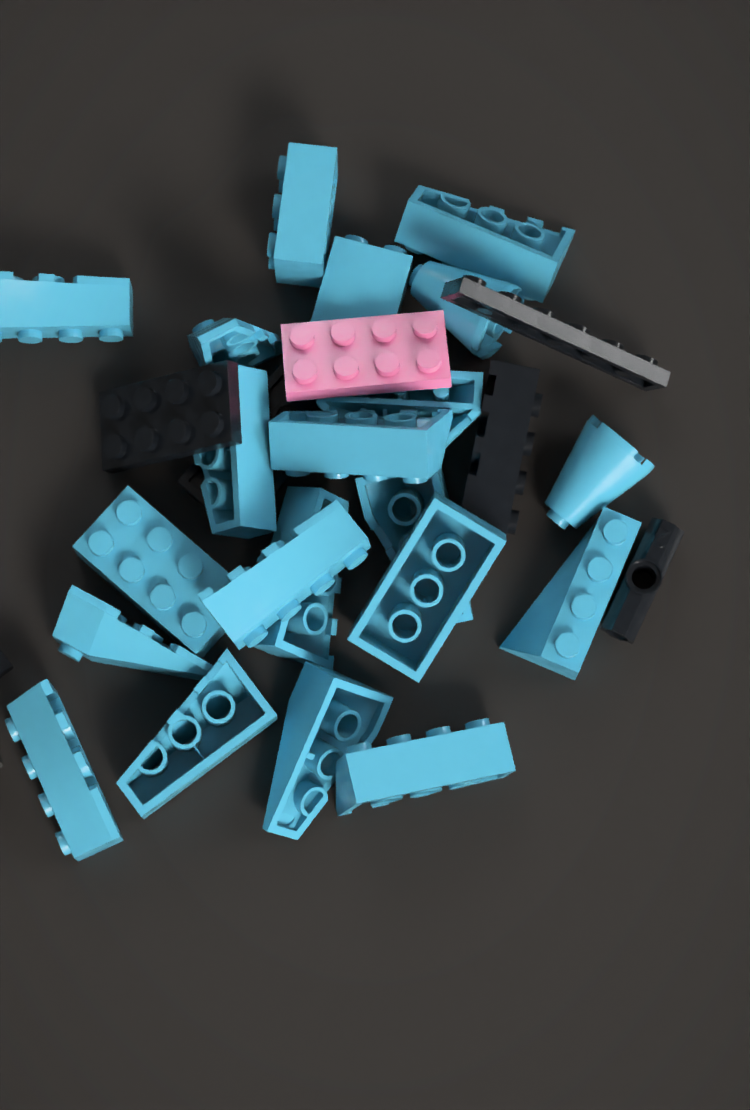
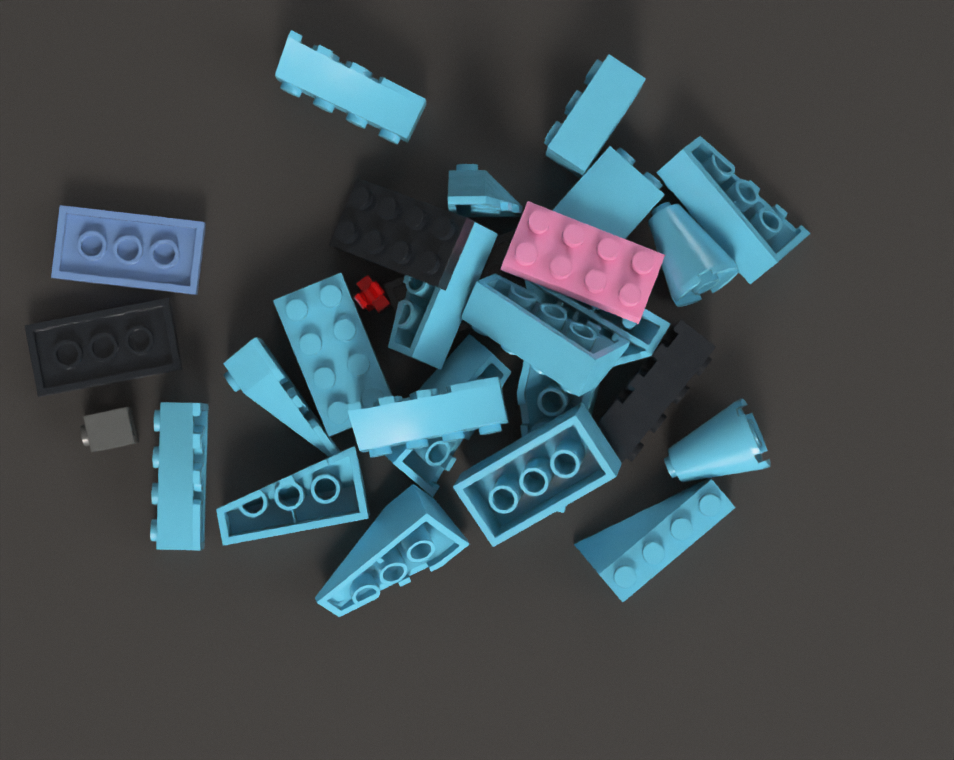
camera: 30 degrees right, 10 degrees up
(170, 496) = (371, 295): none -> red plate
(422, 764) = (464, 613): medium azure wedge -> none
(544, 328) = (737, 311): black plate -> none
(631, 602) = (733, 535): black piece -> none

